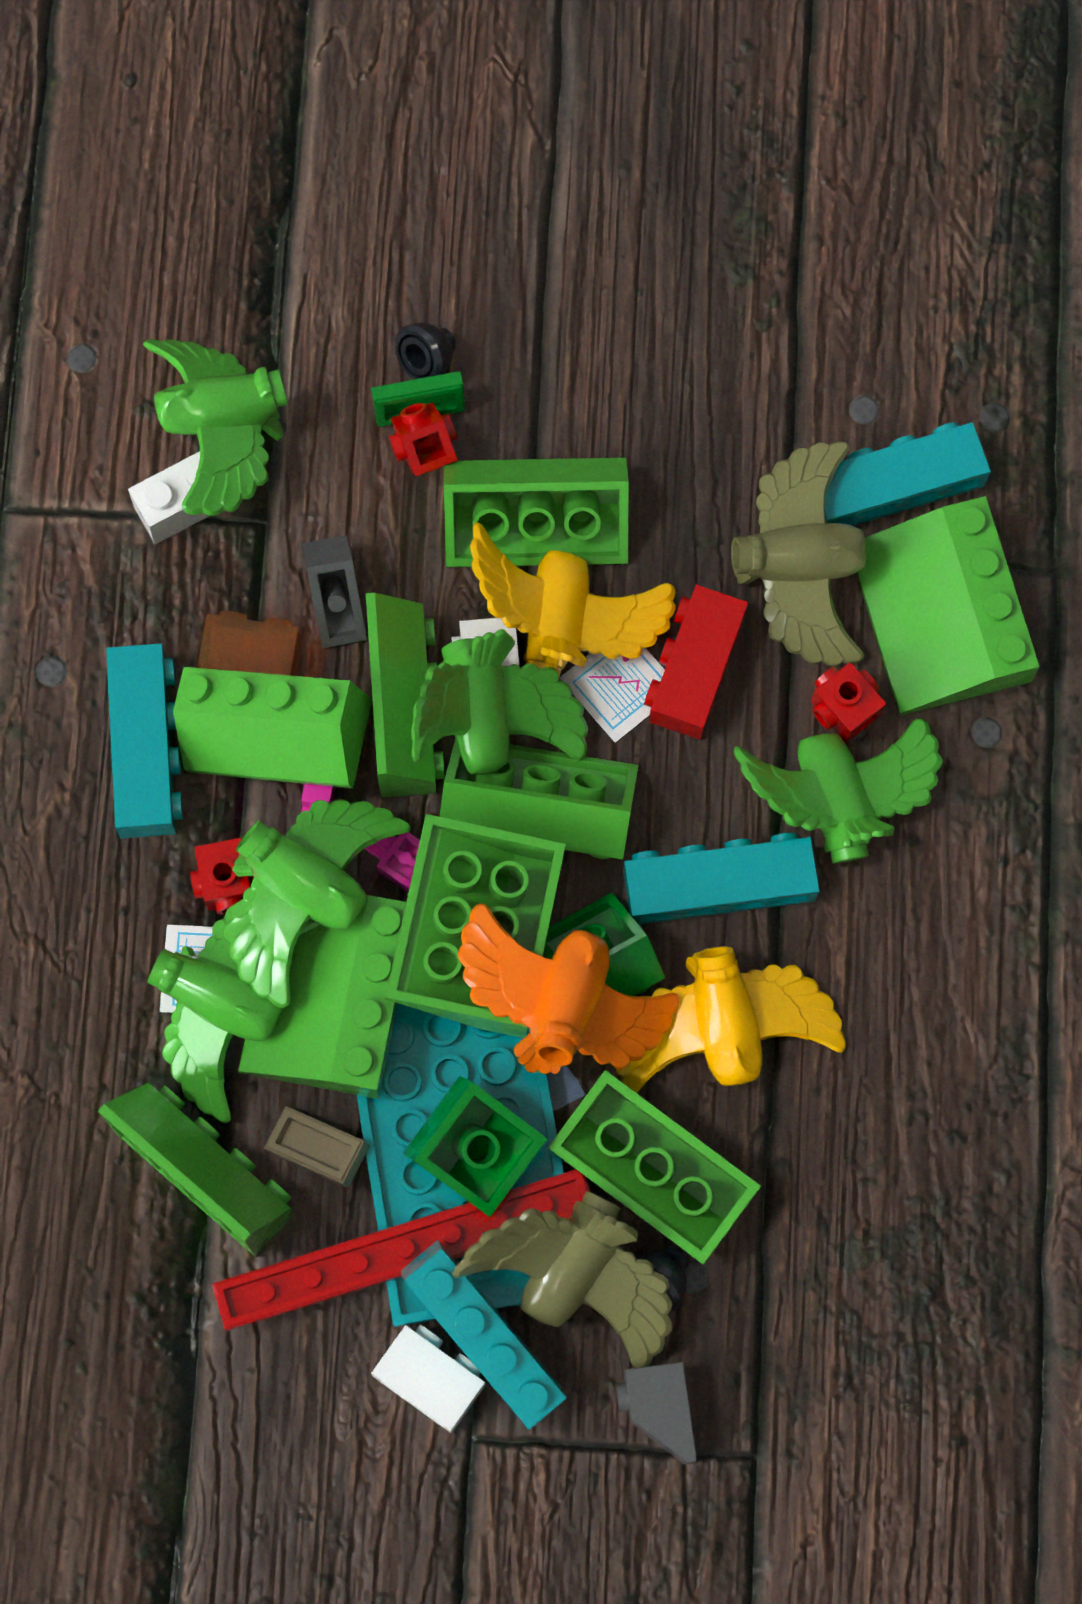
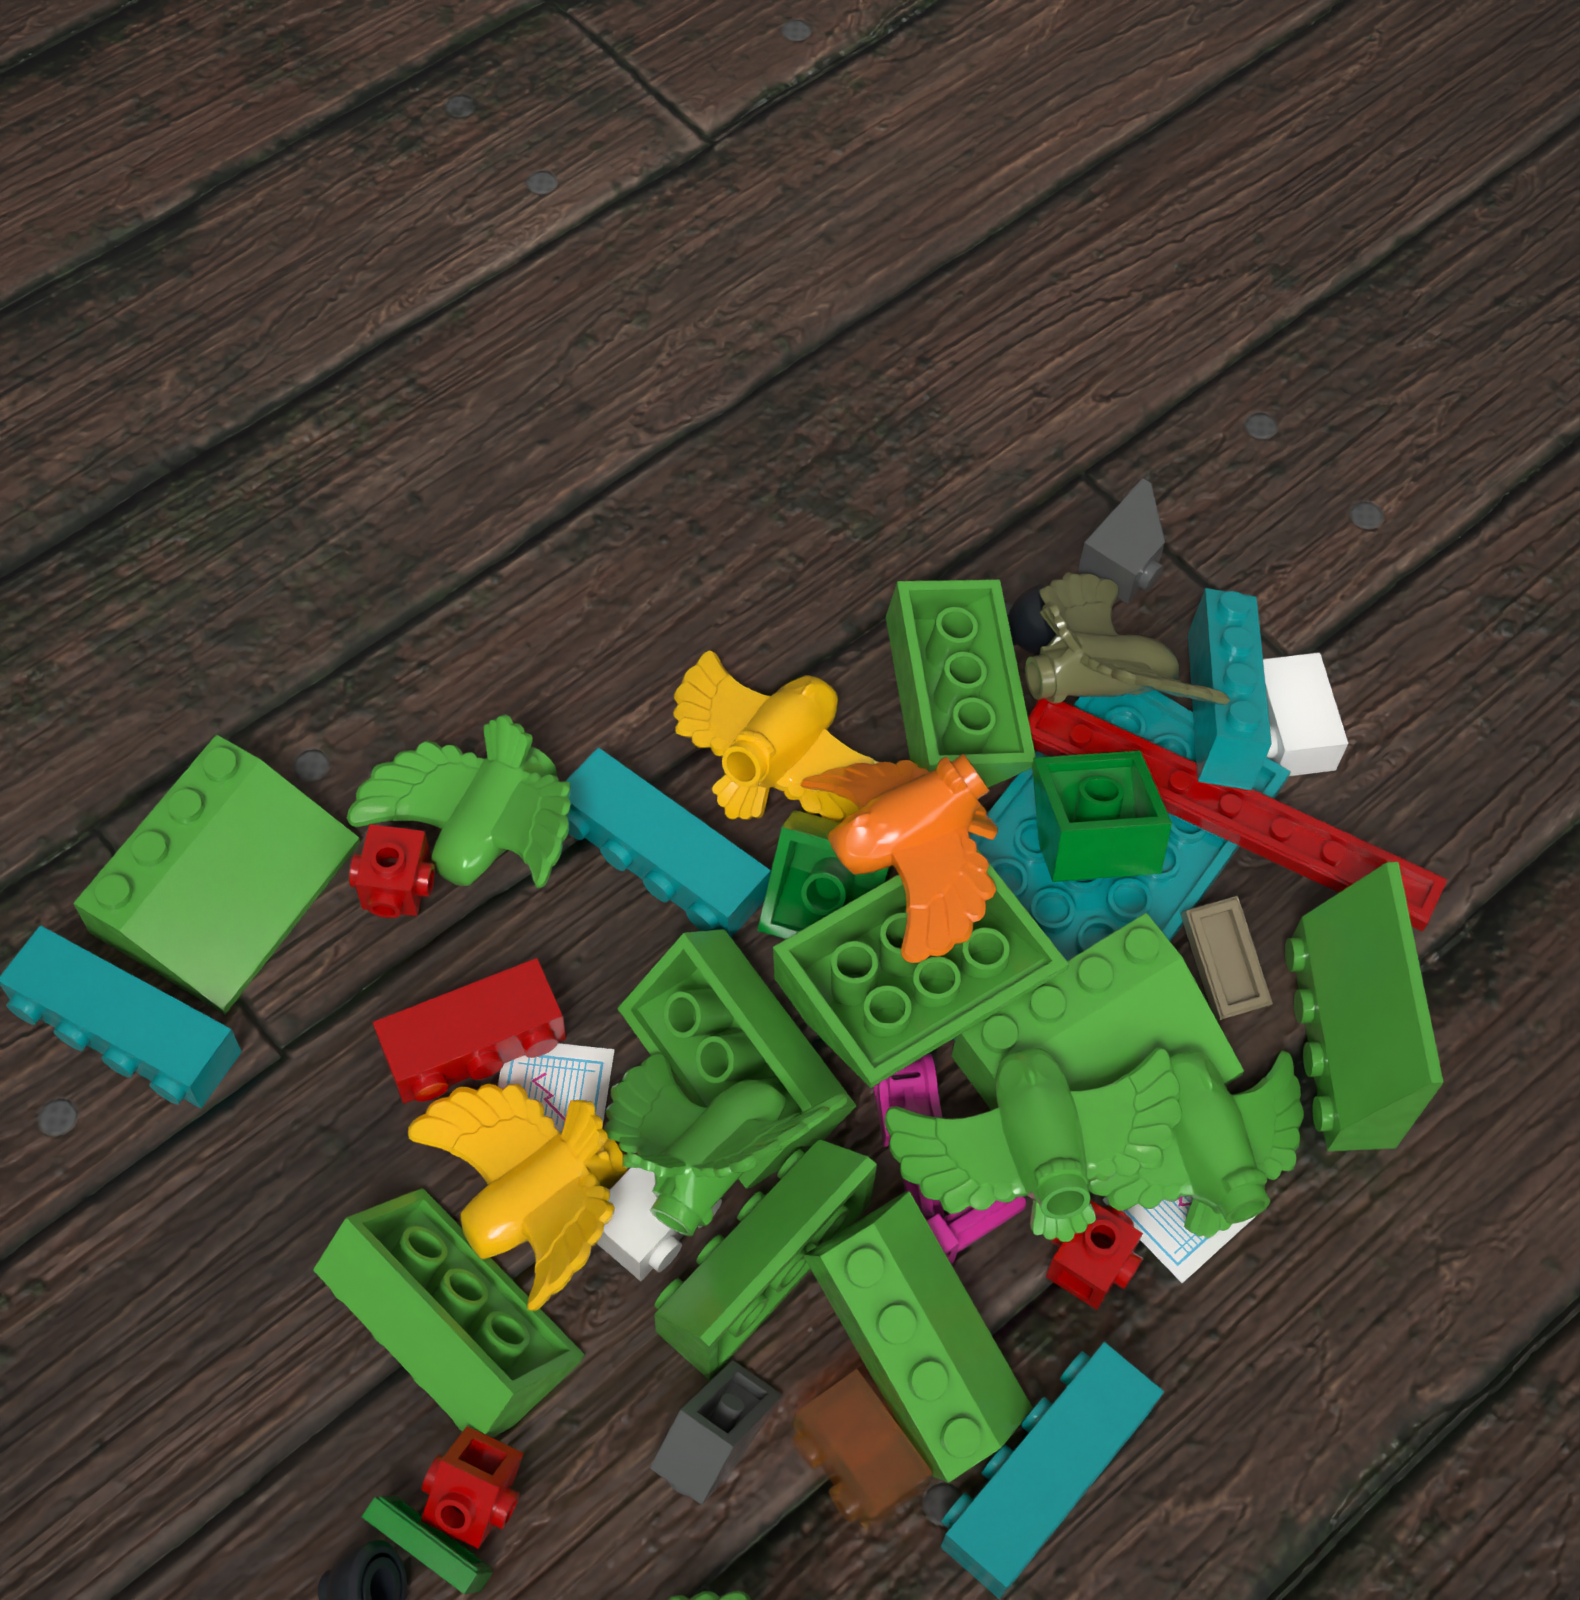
camera: 135 degrees left, 15 degrees down
(801, 555) = (271, 1026): olive animal -> none

